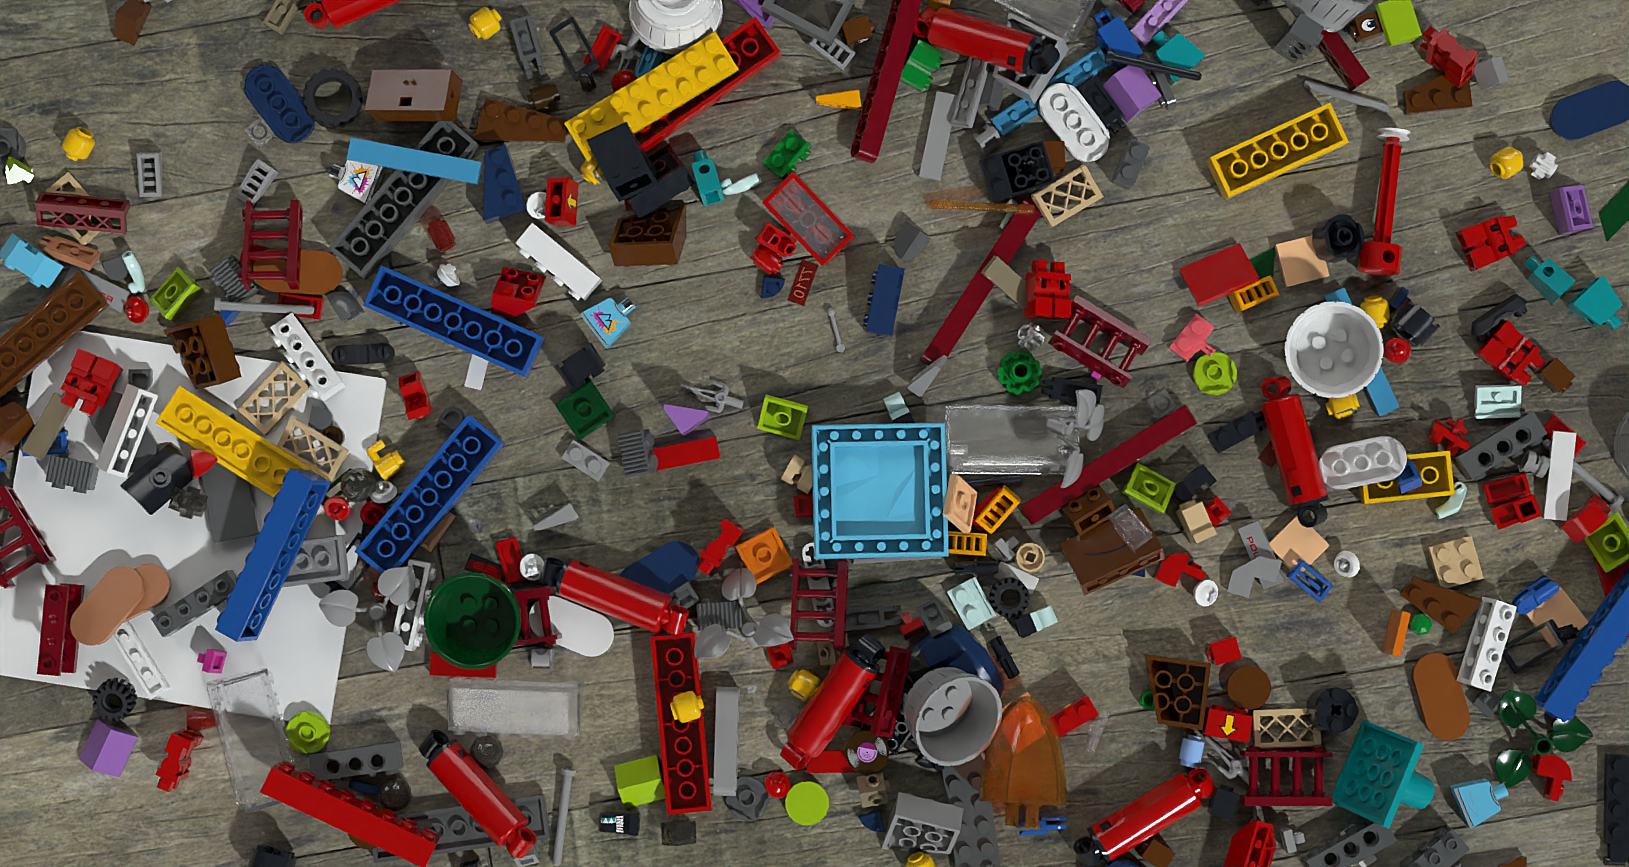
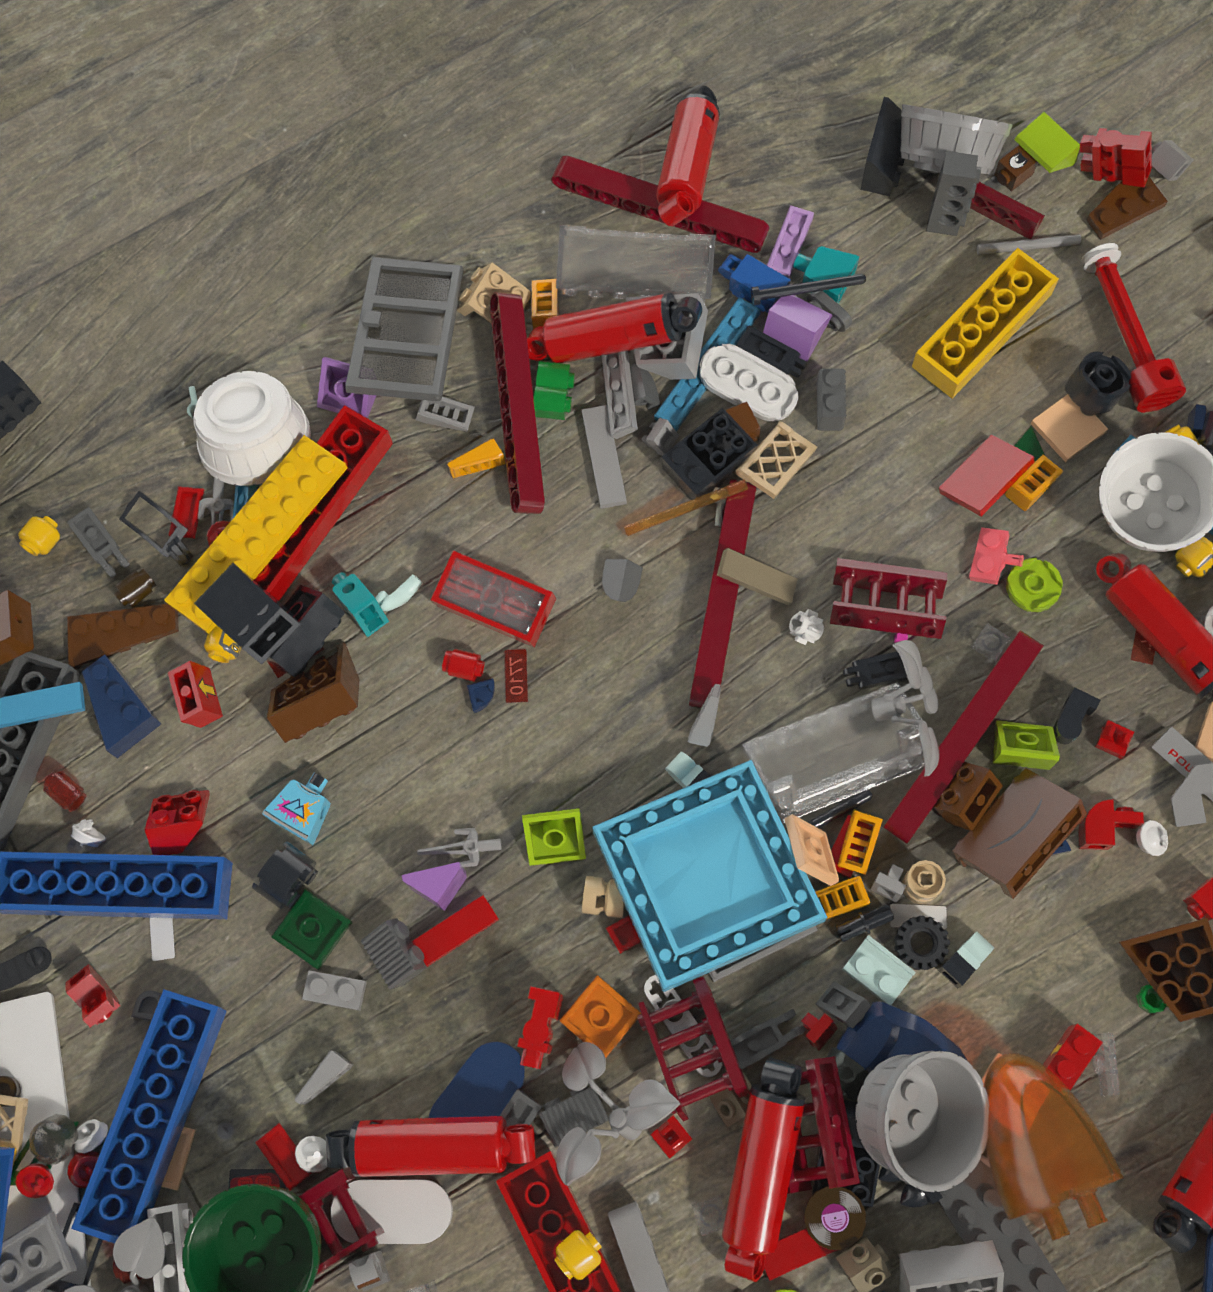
camera: 20 degrees left, 15 degrees down
(388, 464) = (85, 1098): yellow piece -> none
(536, 205) = (166, 711): white hat -> none
(558, 261) = (215, 764): white brick -> none
(776, 240) = (464, 636): red hips -> none
(787, 155) = (440, 541): green bracket -> none
(803, 684) = (716, 1162): yellow head -> none
(840, 347) = (590, 731): light grey hinge -> none
(858, 30) = (467, 381): reddish brown brick -> none
(884, 300) = (618, 652): dark blue wedge -> none
(1004, 657) = (950, 1020): black axle -> none
(1023, 361) = (815, 684): green plant -> none
(1042, 824) = (1103, 1227): blue arm -> none
(1048, 291) = (803, 568): red hips -> none
(1130, 526) = (1028, 792): clear plate -> none
(1195, 521) = (1100, 756): tan hips -> none
(1236, 431) = (1091, 638): black hinge -> none

